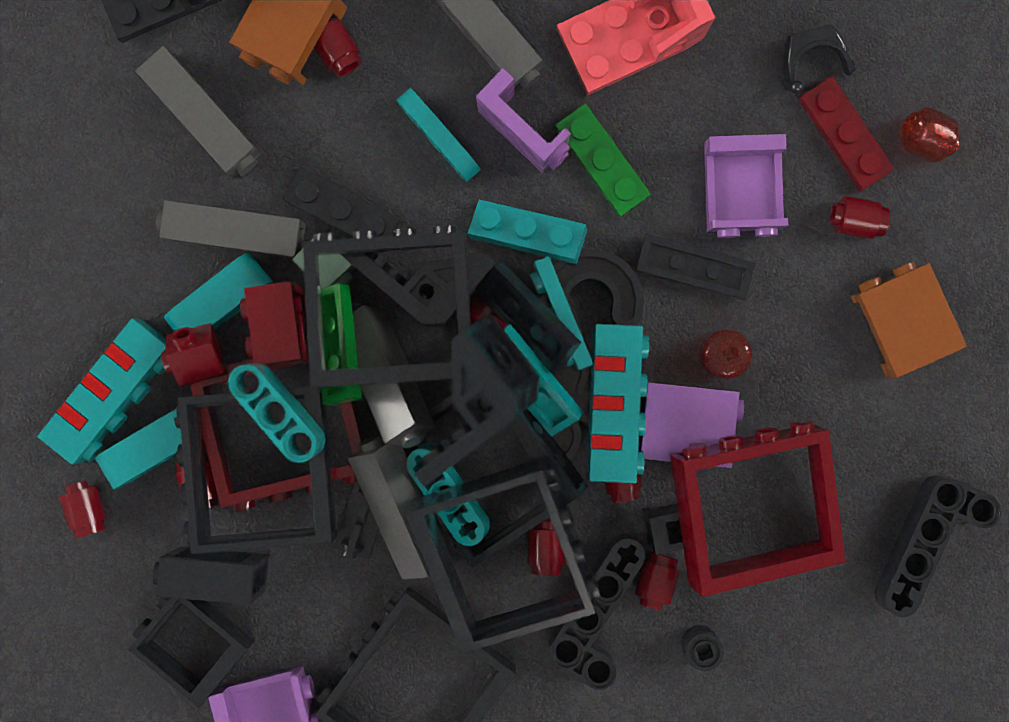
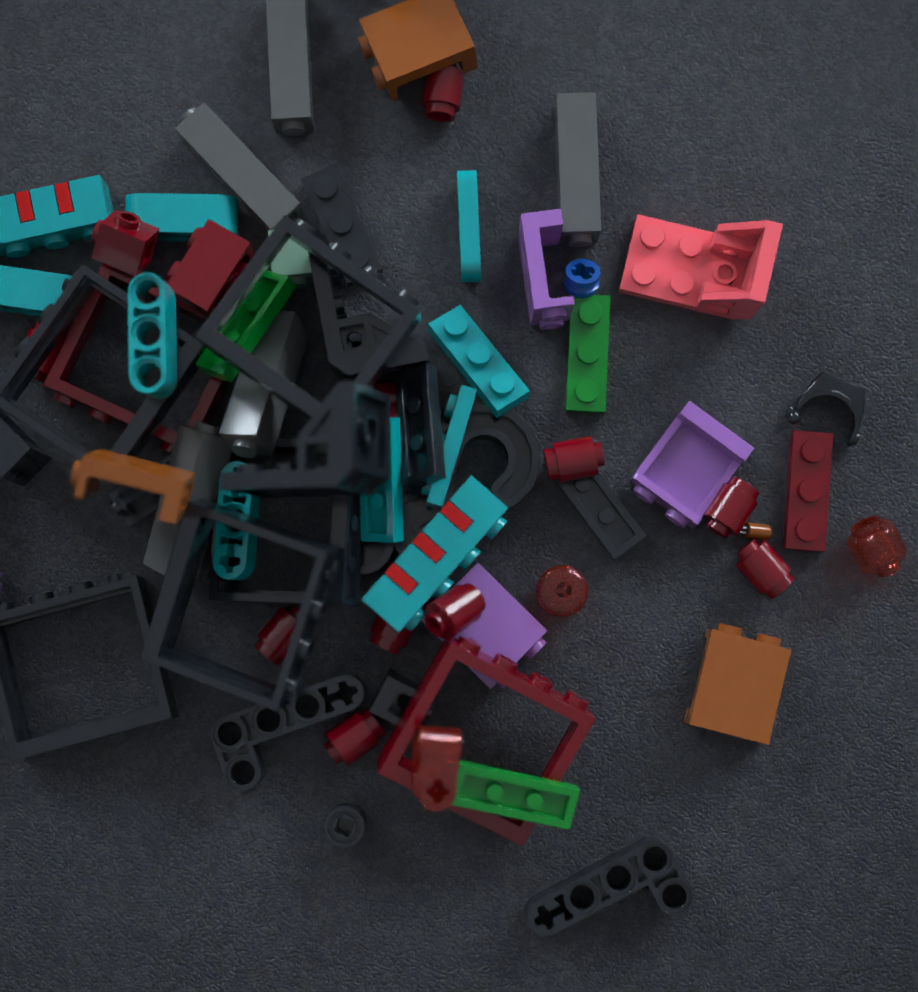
camera: 35 degrees right, 5 degrees down
(351, 525) = (135, 472): none -> dark orange panel
(555, 115) = (582, 278): none -> blue bush
(659, 249) = (573, 459): none -> dark red brick
(663, 434) = (454, 611): none -> dark red brick
(739, 554) = (436, 758): none -> clear red piece
(801, 192) = (731, 508): none -> dark red brick
(812, 533) = (515, 795): none -> green plate
(830, 194) = (756, 531): none -> dark orange piece

